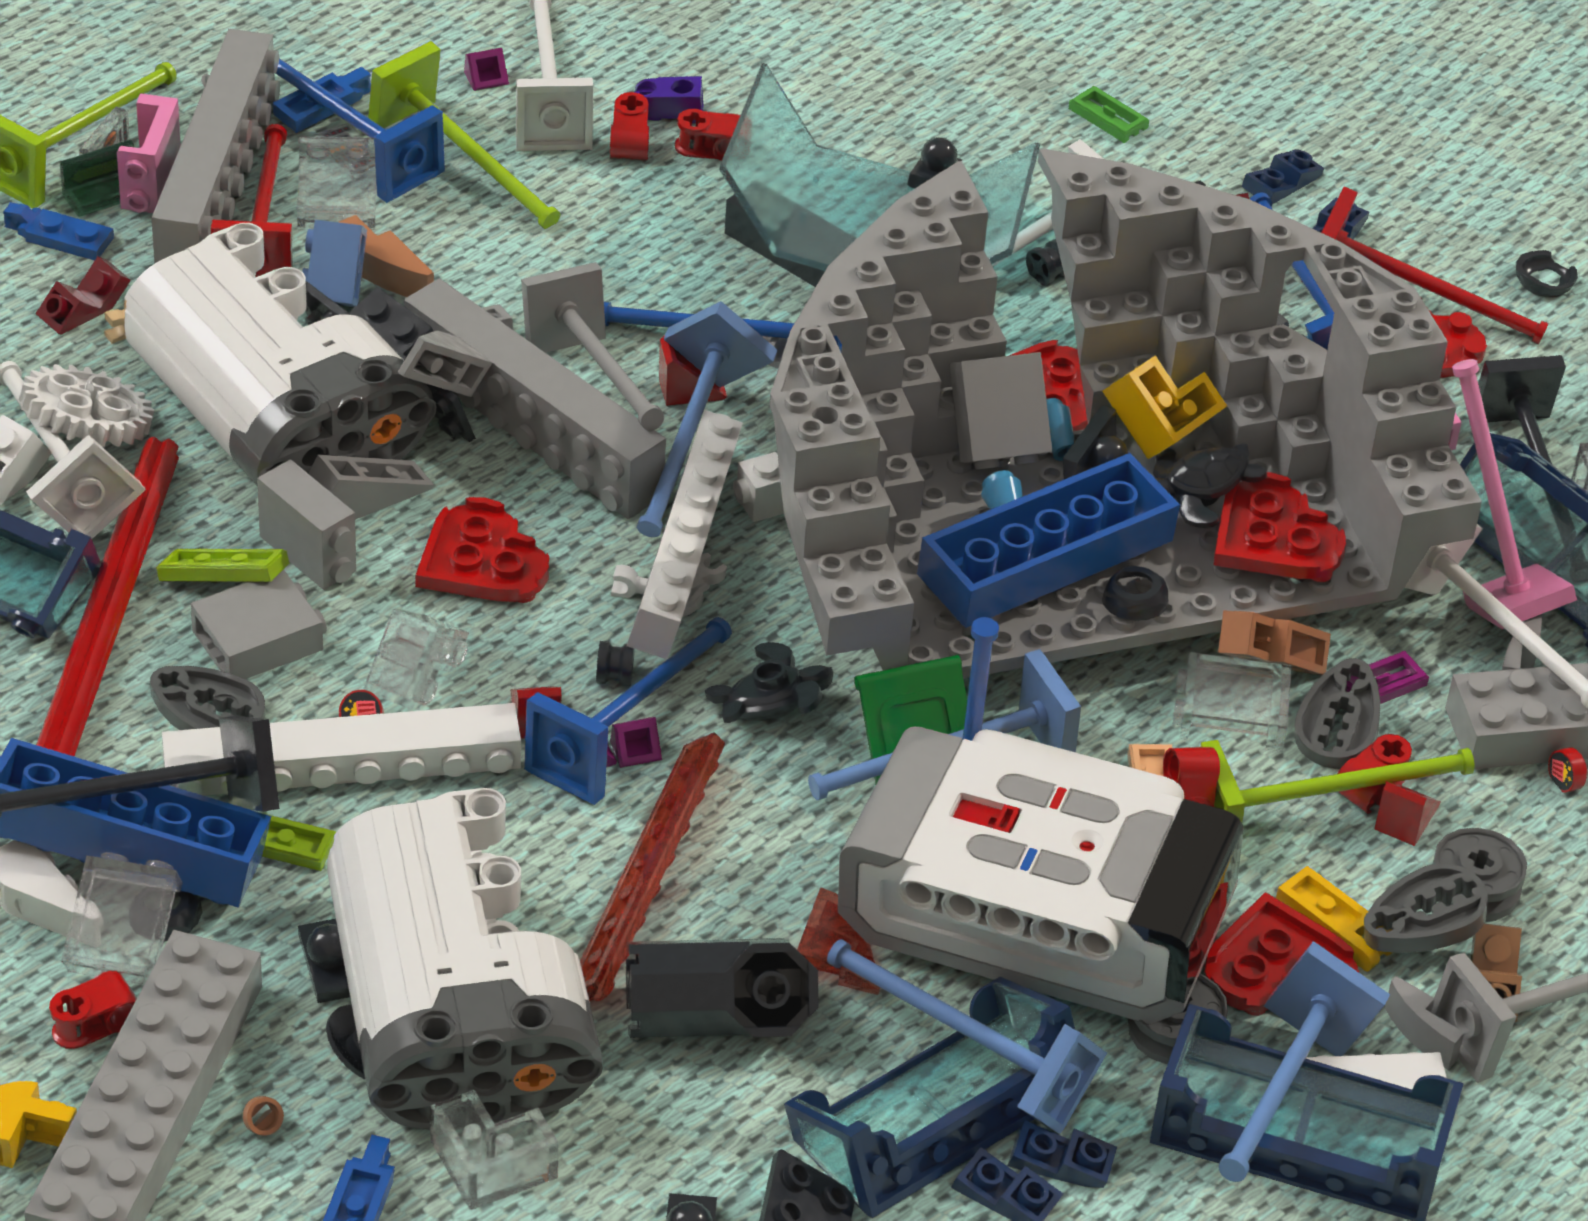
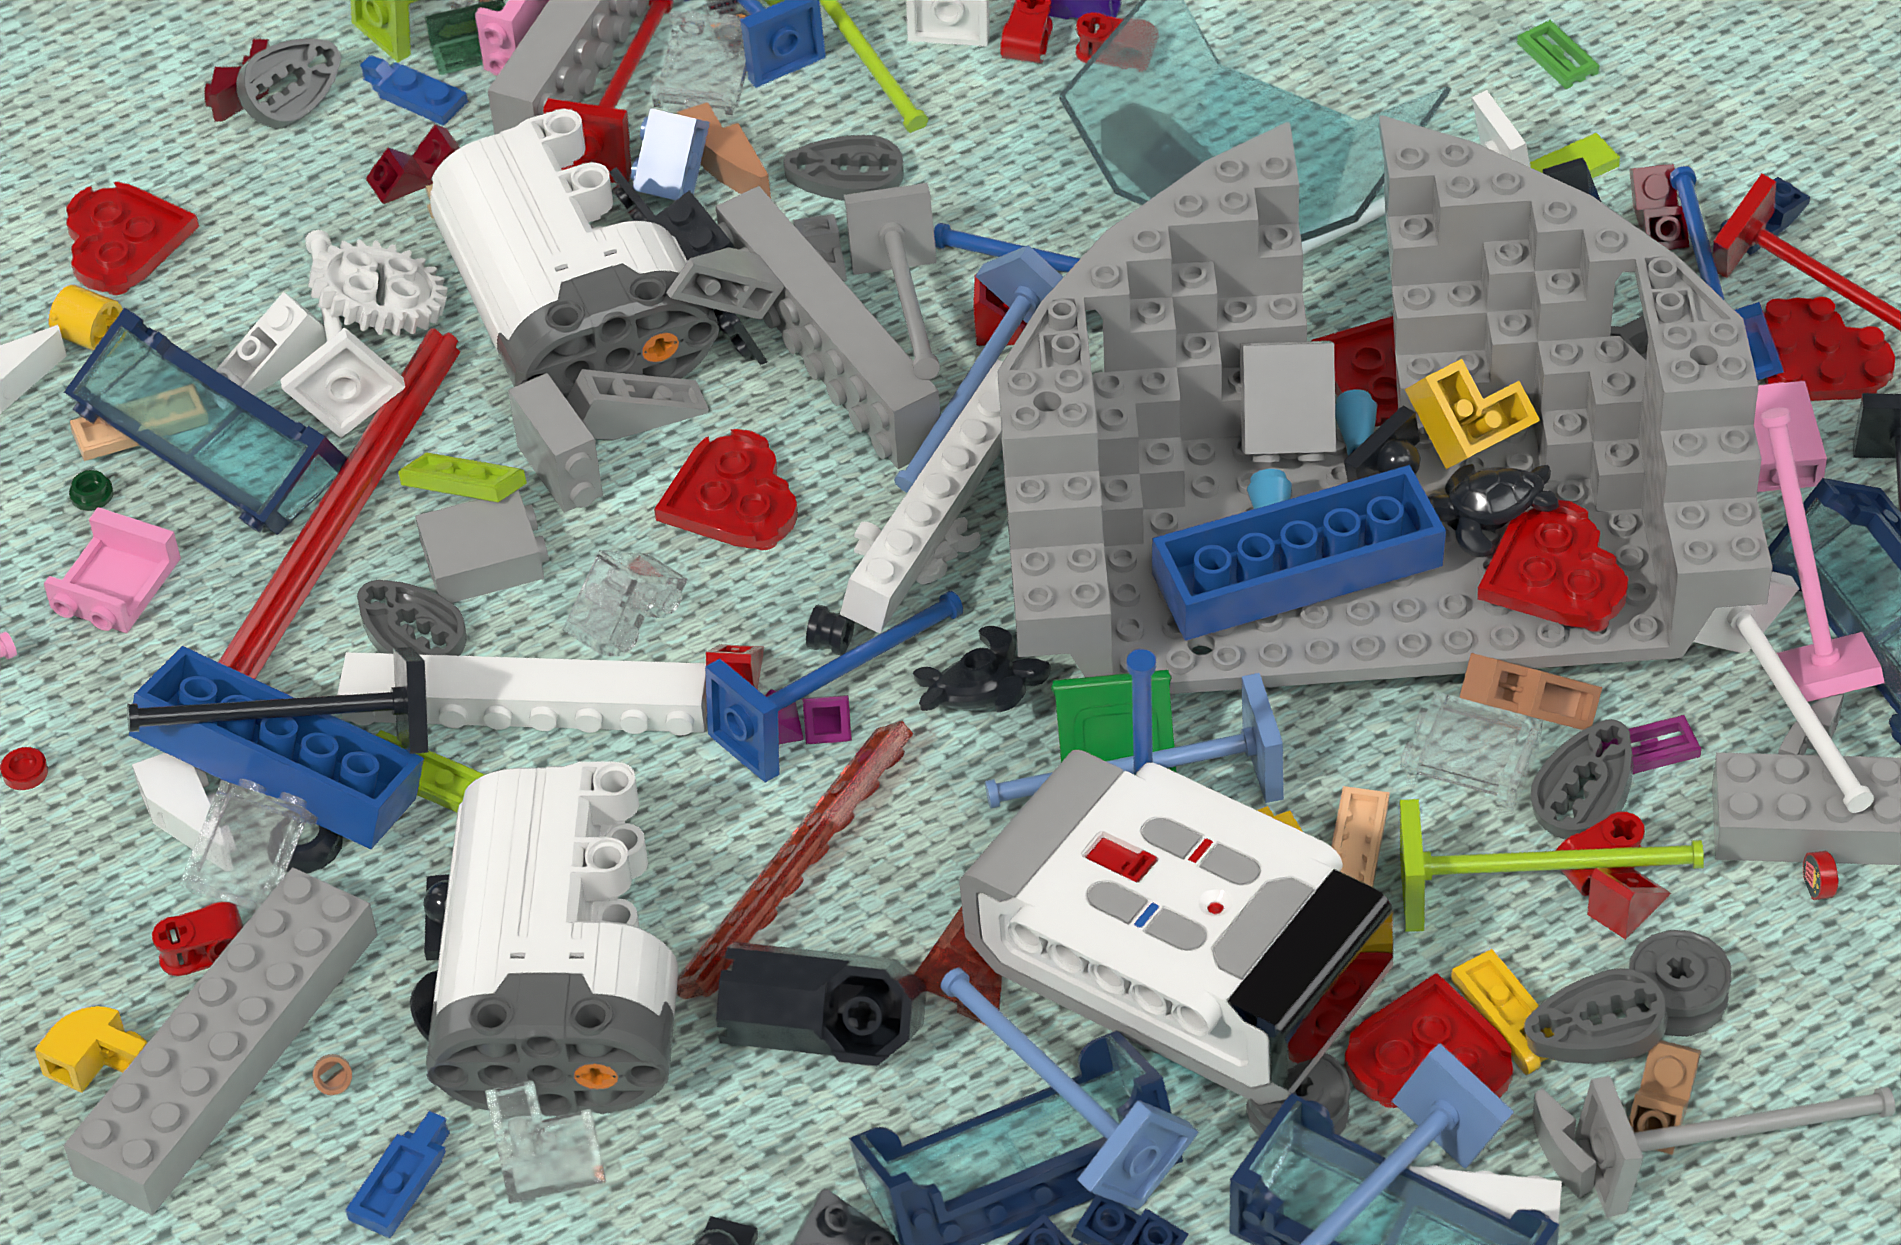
camera: 20 degrees right, 5 degrees up
(360, 703) = (557, 645): tile -> none
(478, 254) = (825, 158): none -> dark grey piece
(935, 157) = (1341, 103): black tile -> none
(1136, 606) = (1384, 637): black piece -> none
(1195, 771) = (1376, 845): red piece -> none
(1285, 176) = (1734, 144): dark blue slope -> none

